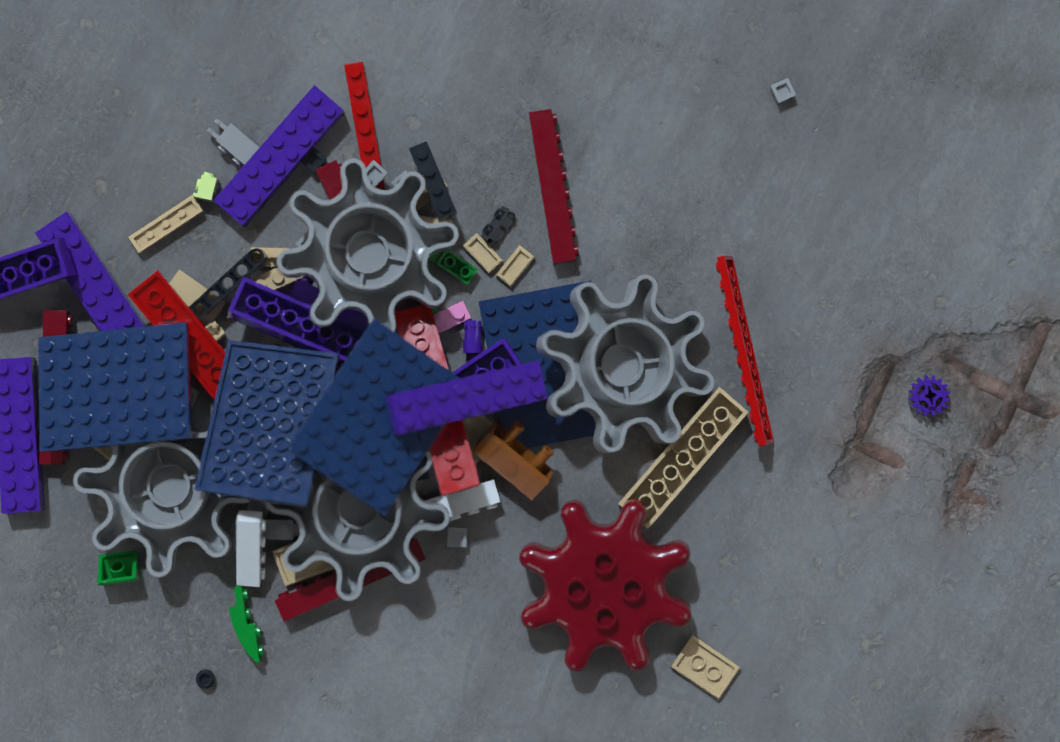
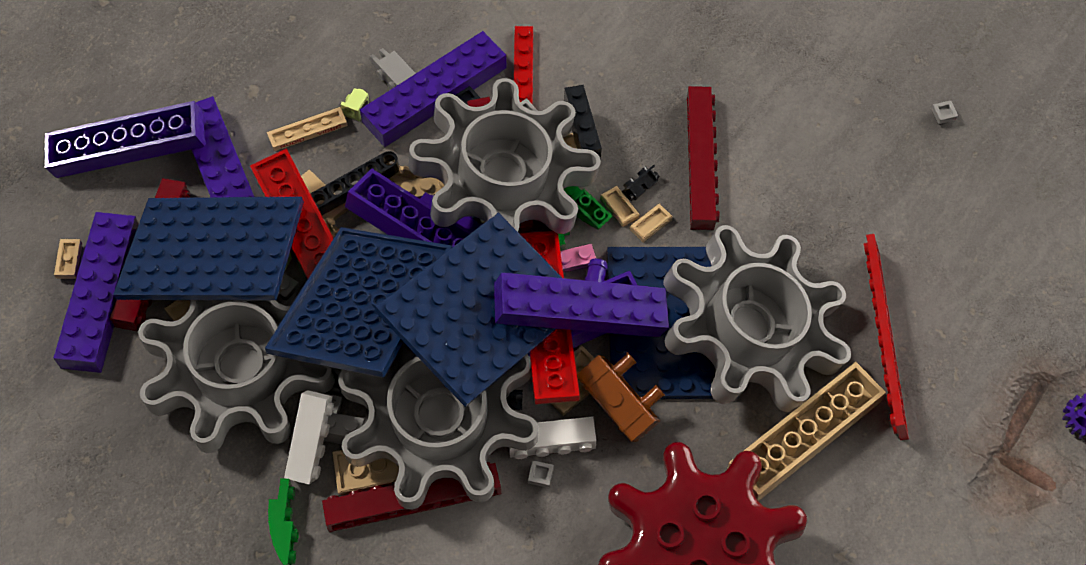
camera: 10 degrees right, 25 degrees down
(118, 568) = (160, 443): green slope -> none

